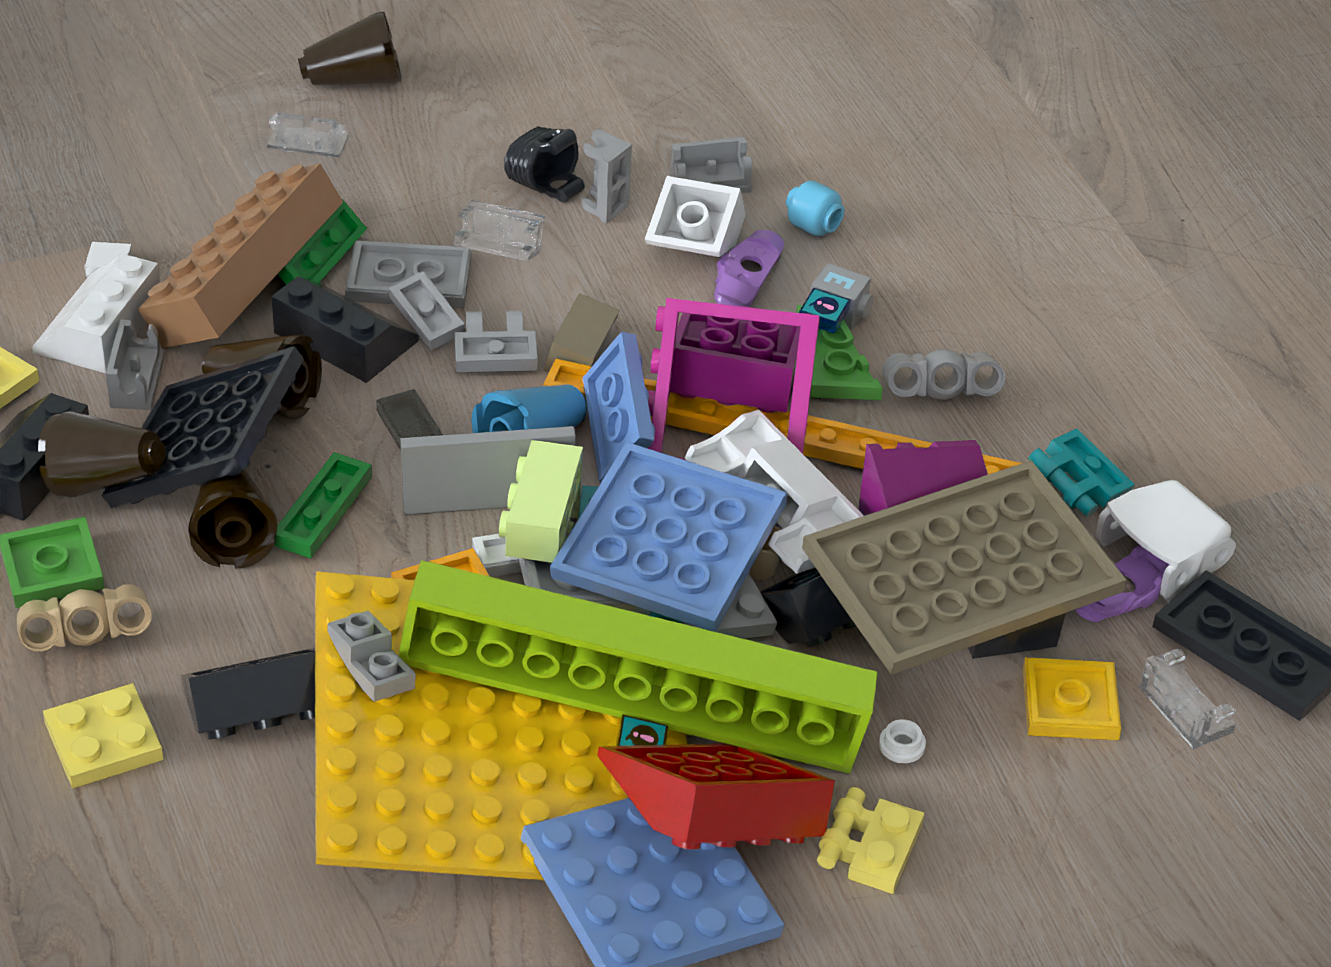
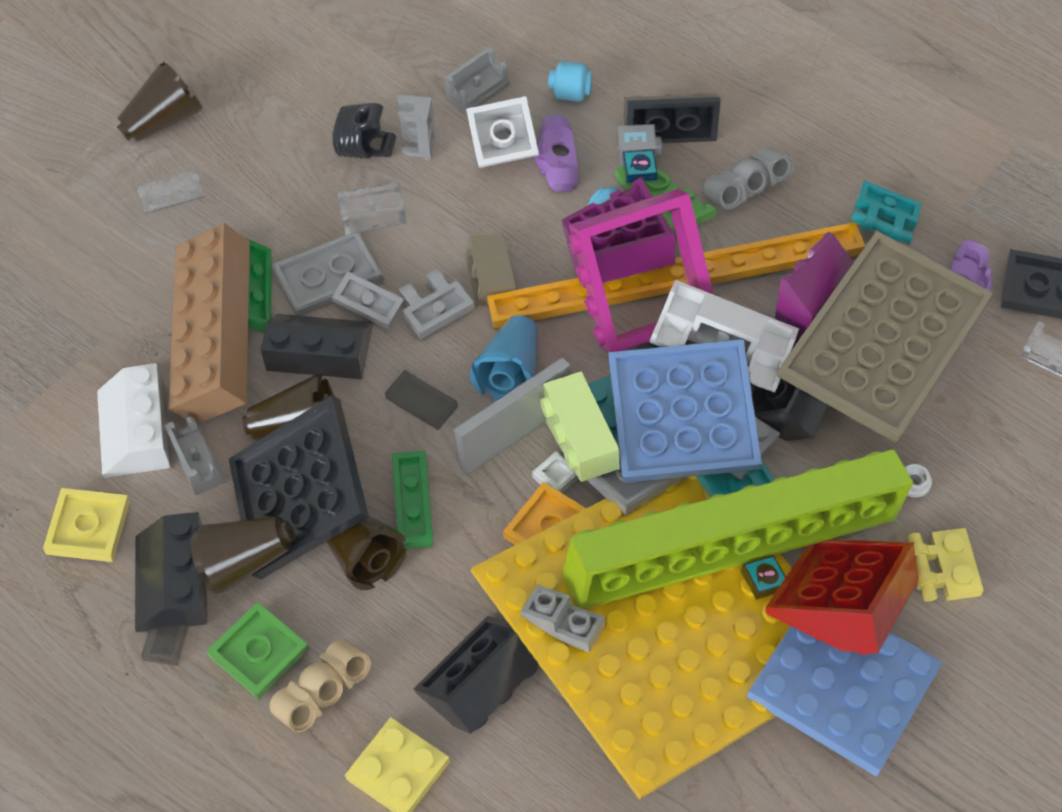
camera: 25 degrees left, 15 degrees up
(102, 253) = (100, 369): white tile -> none
(617, 401) = (570, 320): medium blue plate -> none
(905, 283) = (676, 116): none -> black slope
(1071, 699) = (989, 389): yellow tile -> none
(1172, 527) = (973, 229): white piece -> none

